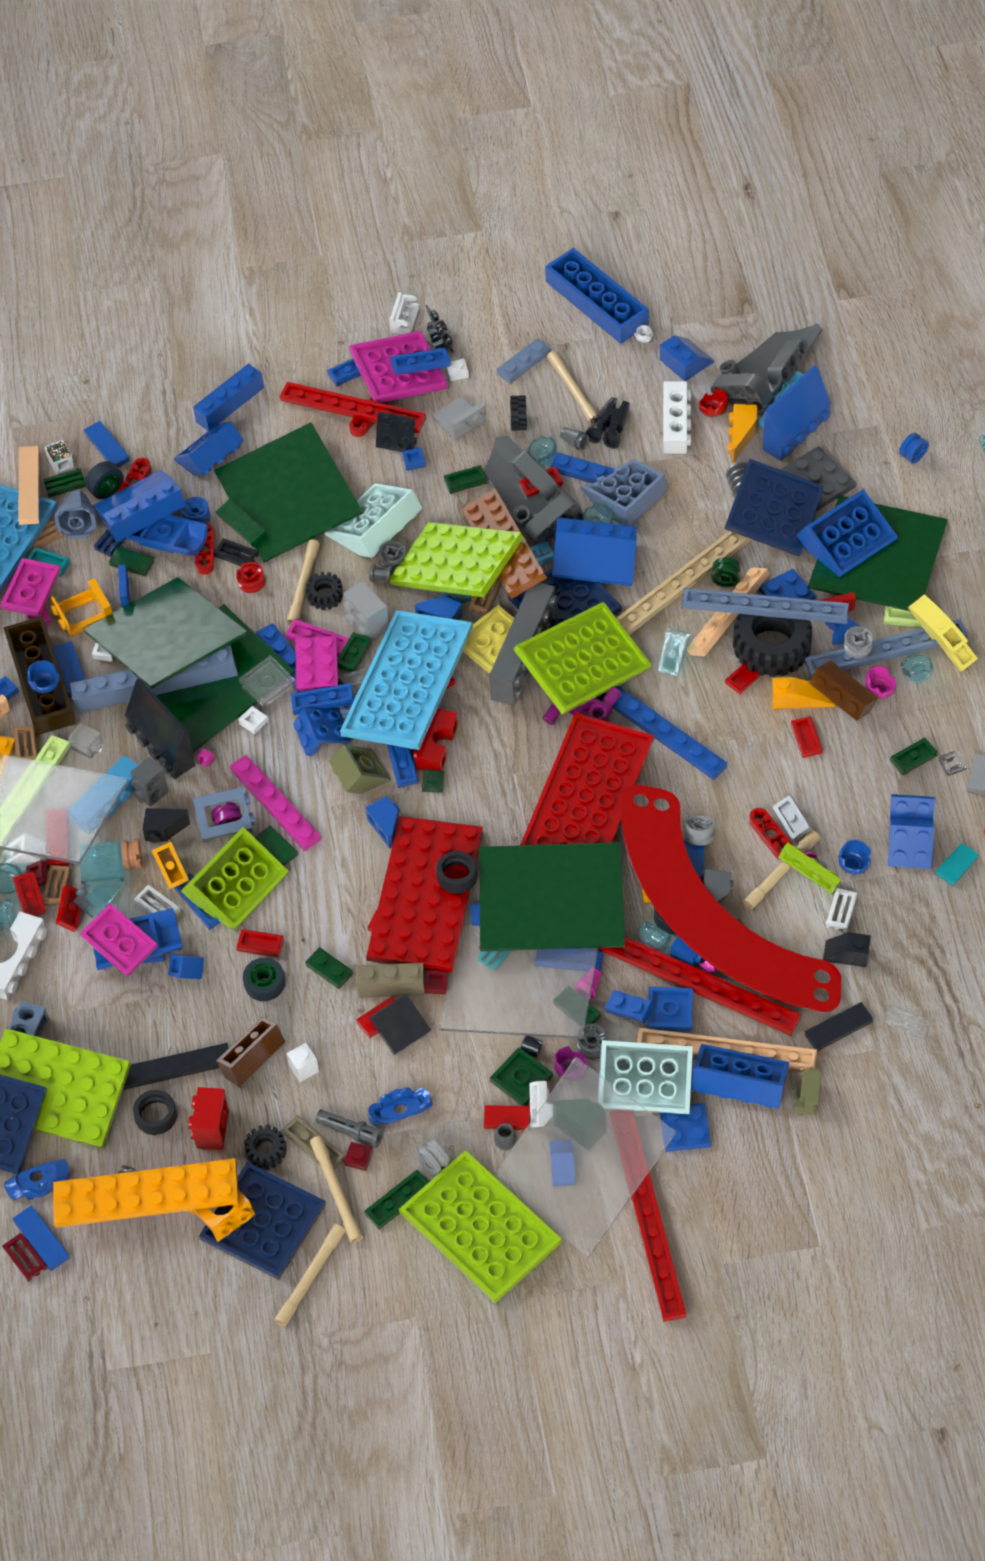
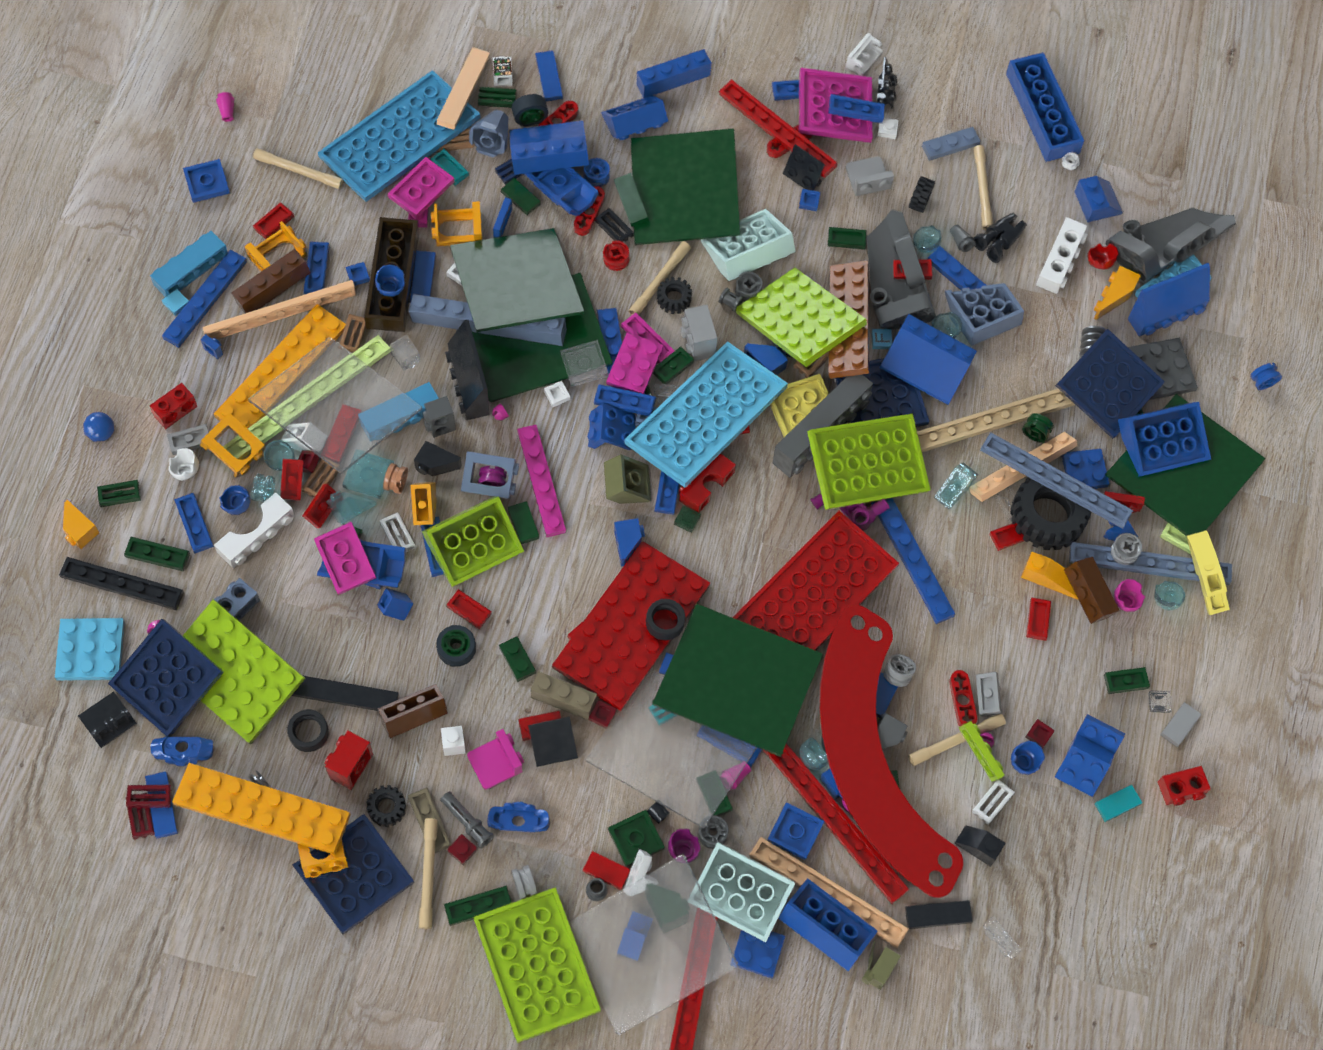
camera: 15 degrees right, 10 degrees up
(27, 1236) = (148, 804): none -> dark red tile
(290, 1306) = (341, 965): tan piece -> none
(354, 1062) = (496, 760): none -> dark pink bracket
(629, 1006) = (760, 813): blue plate -> none
(856, 831) = (1040, 733): none -> dark red plate

